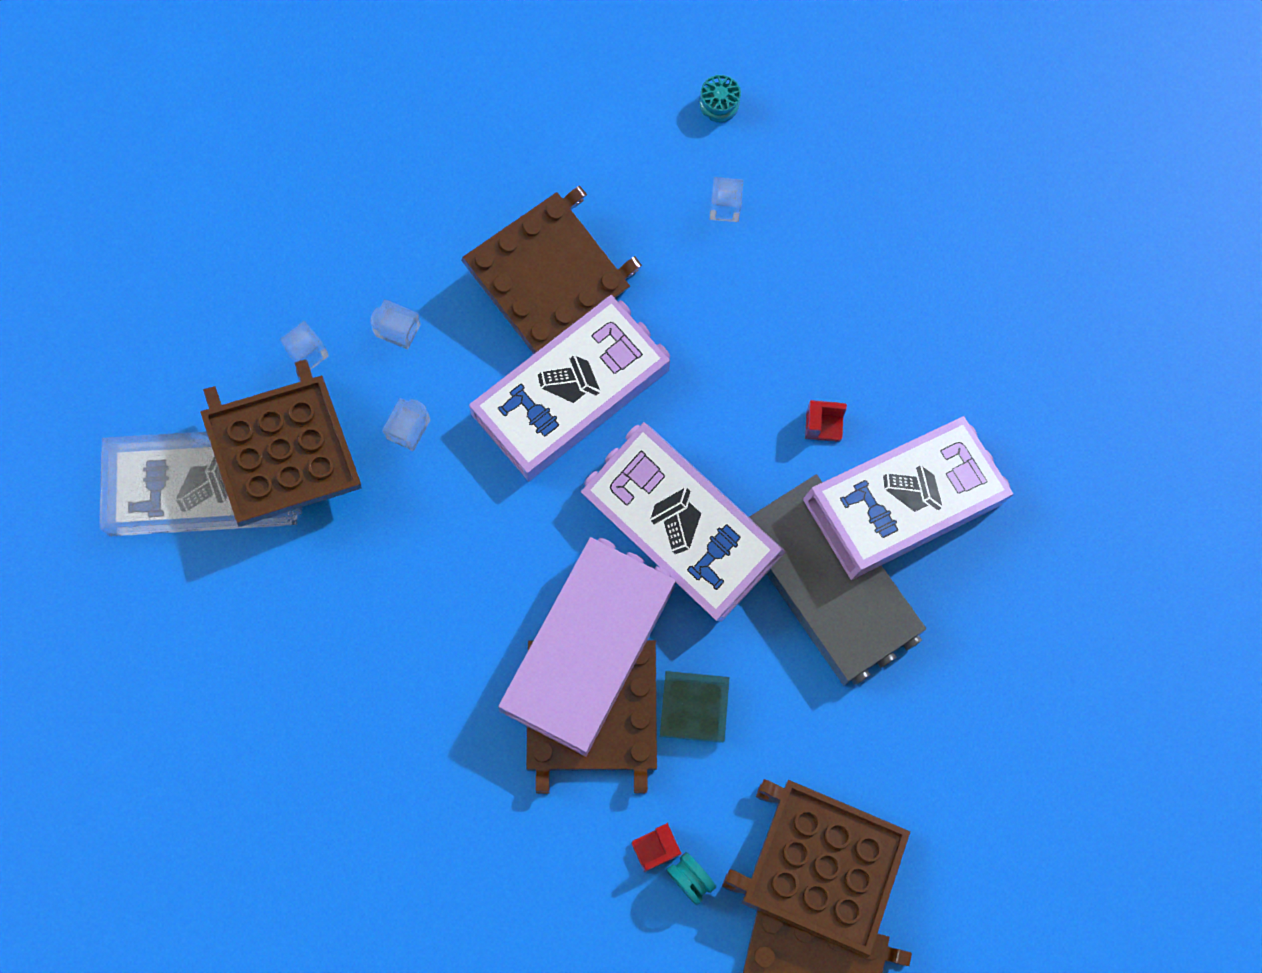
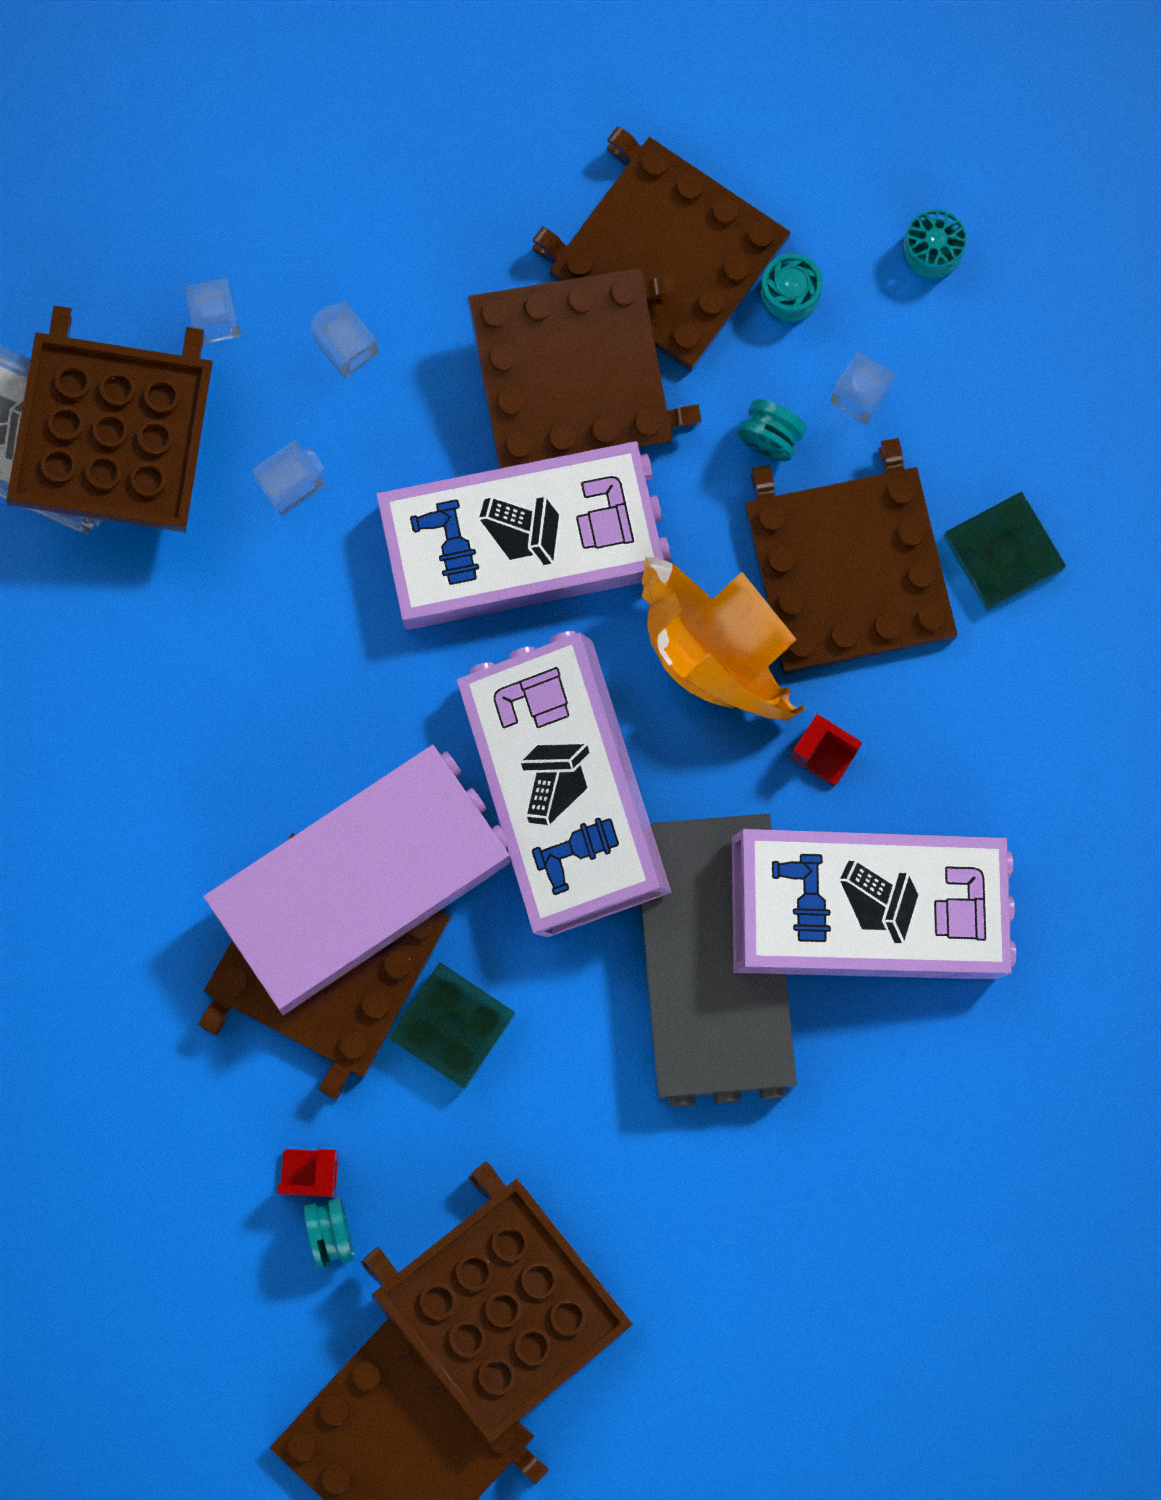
camera: 30 degrees right, 5 degrees up
(557, 159) = (668, 223): none -> reddish brown plate
(650, 163) = (791, 288): none -> teal wheel
(687, 249) = (772, 430): none -> teal wheel
(728, 389) = (717, 644): none -> light orange animal
(775, 307) = (850, 565): none -> reddish brown plate
(861, 253) = (1004, 551): none -> clear green plate

